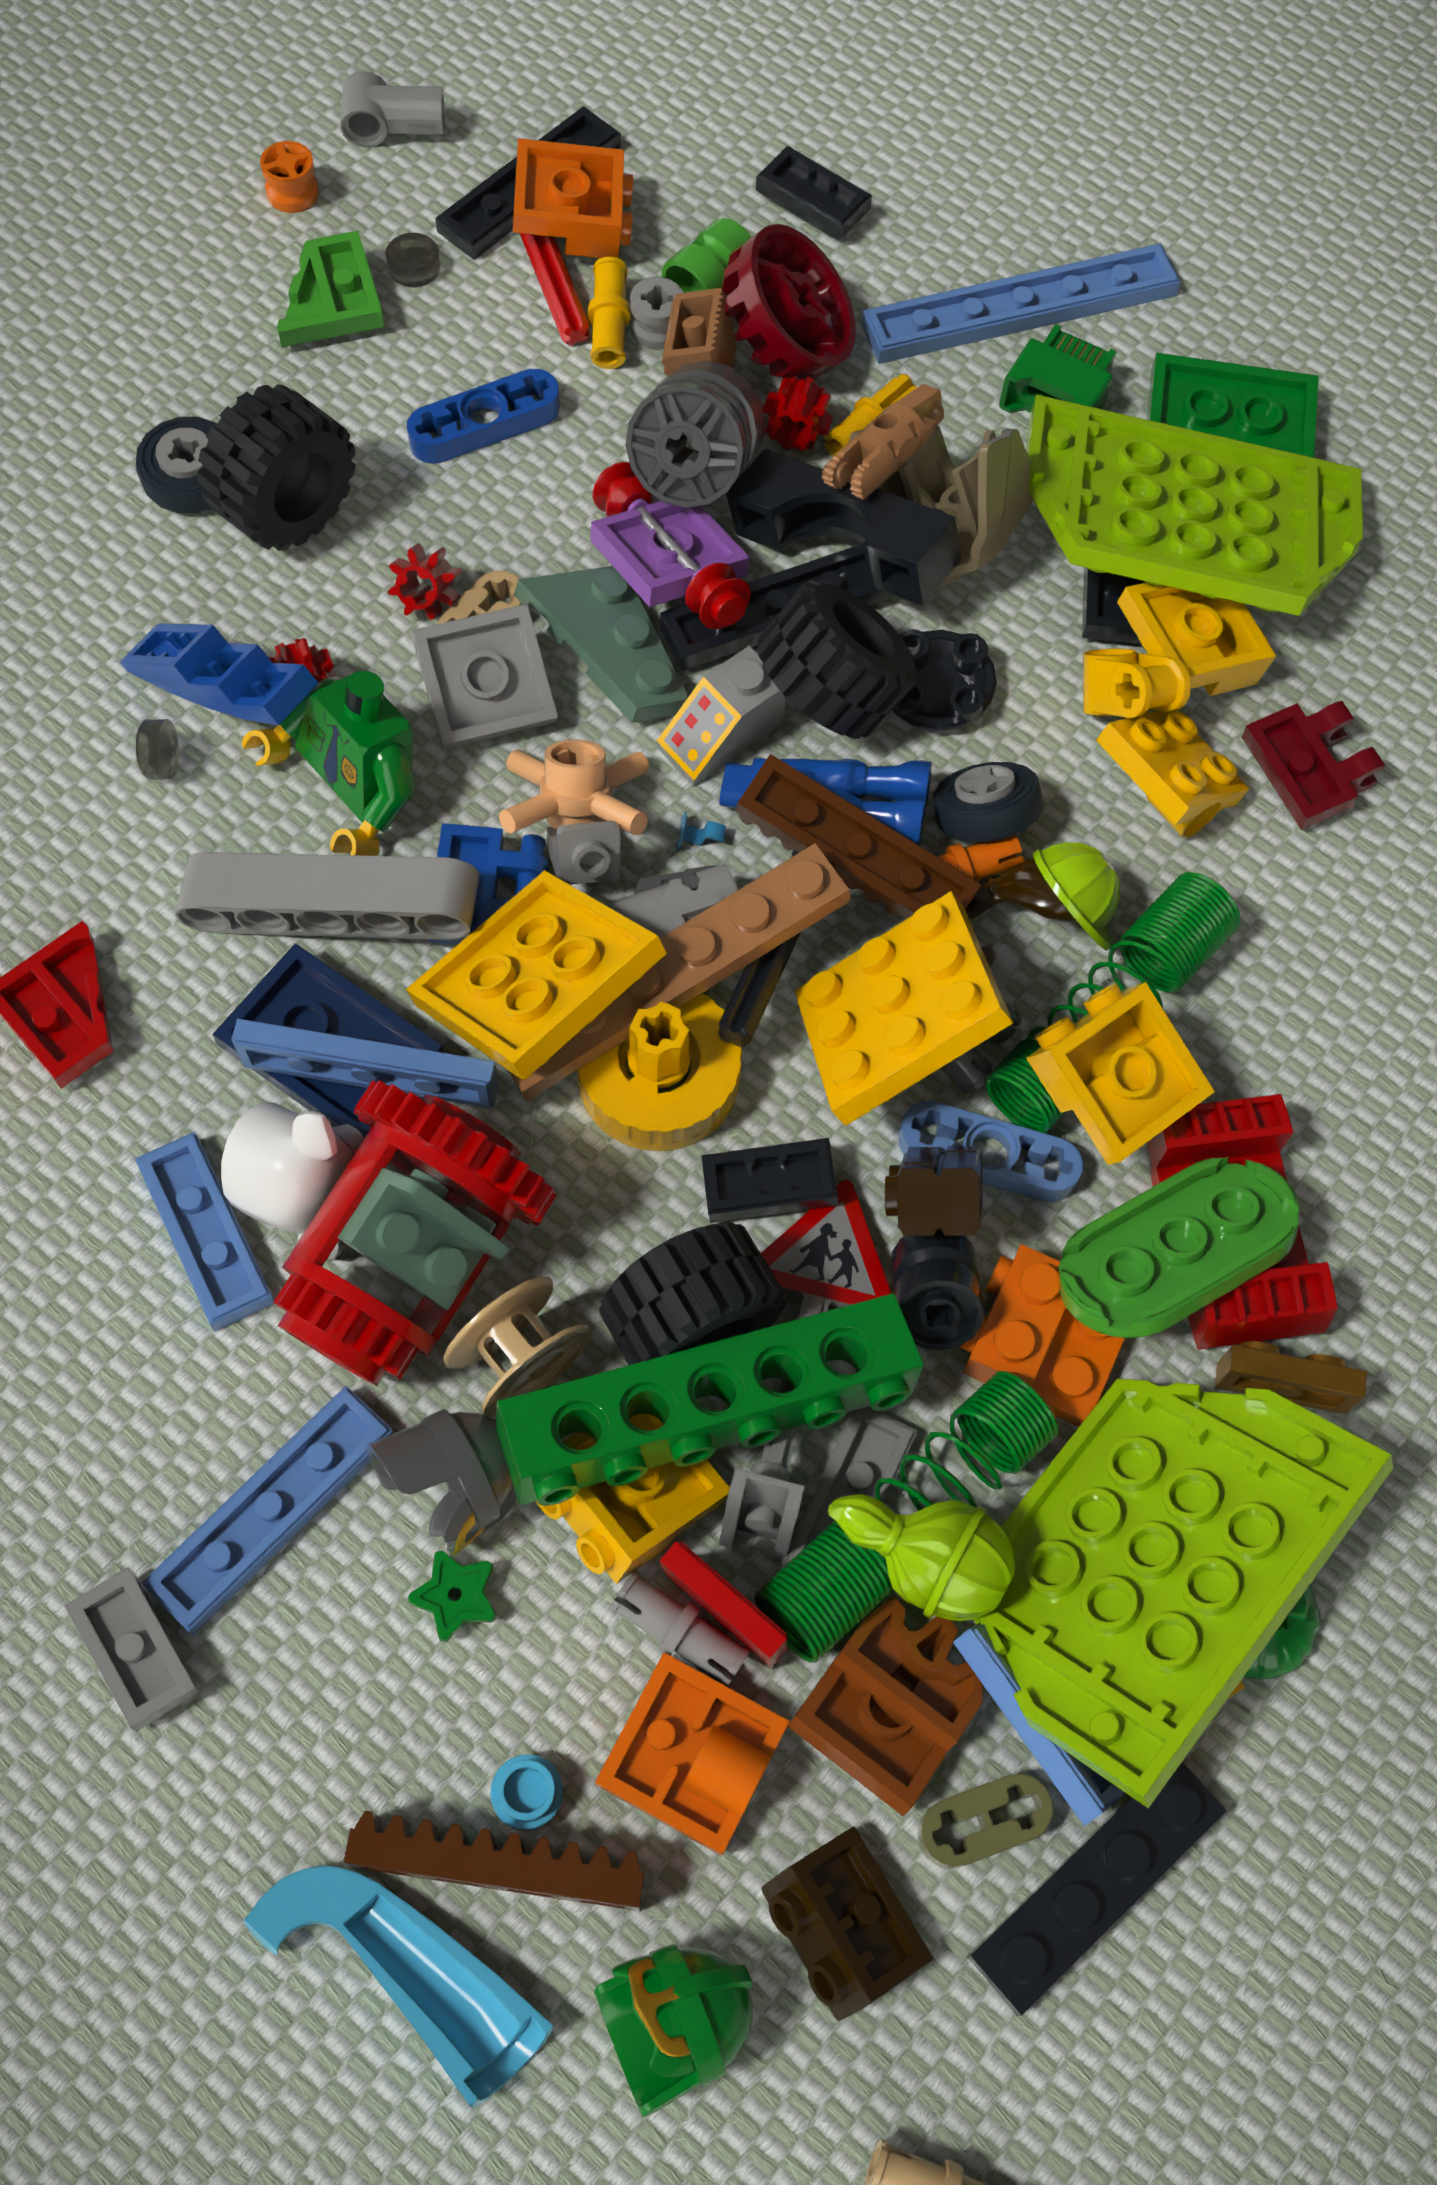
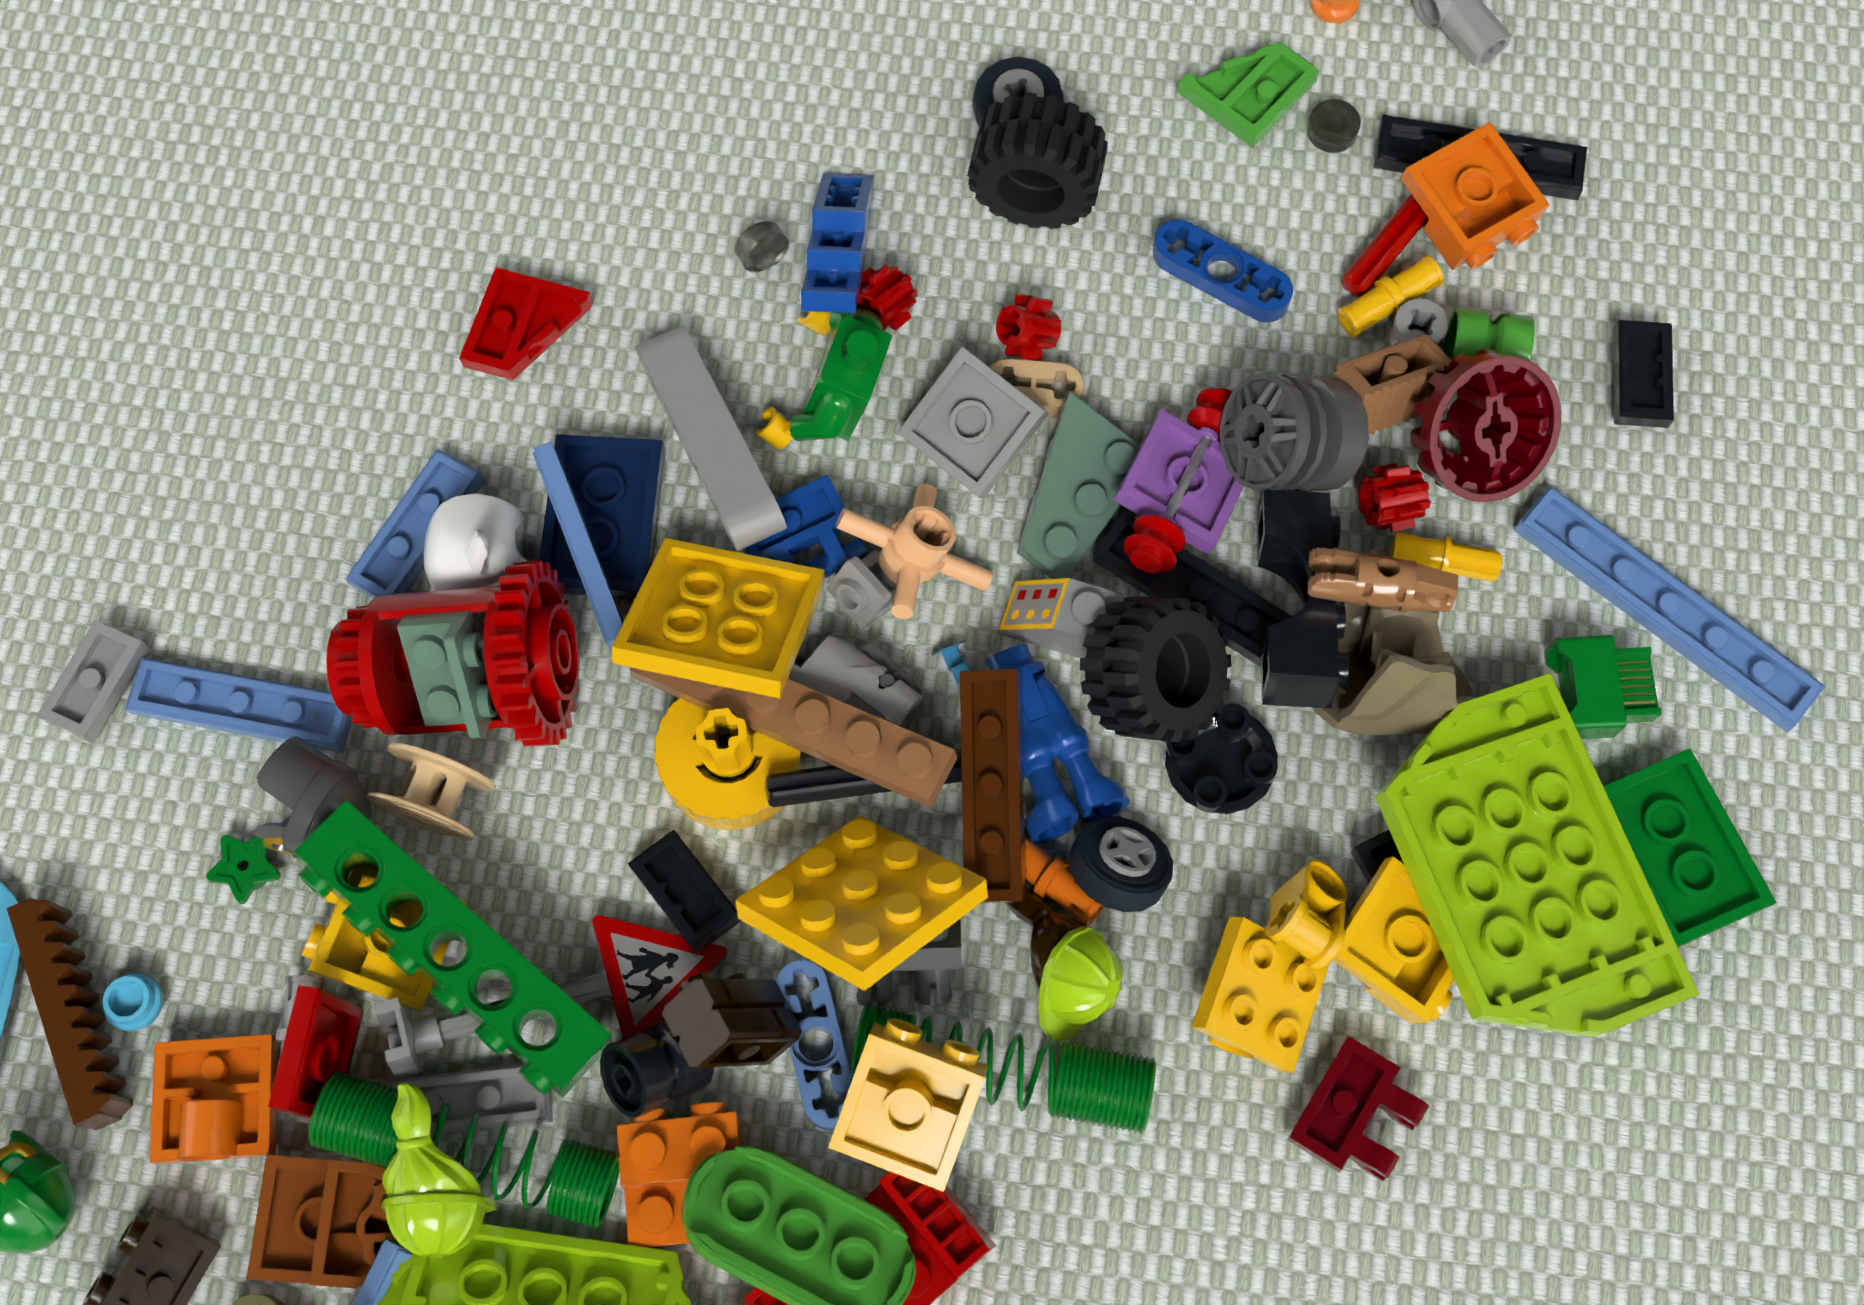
camera: 65 degrees right, 5 degrees up
(692, 1293) = (528, 893): black tyre -> none

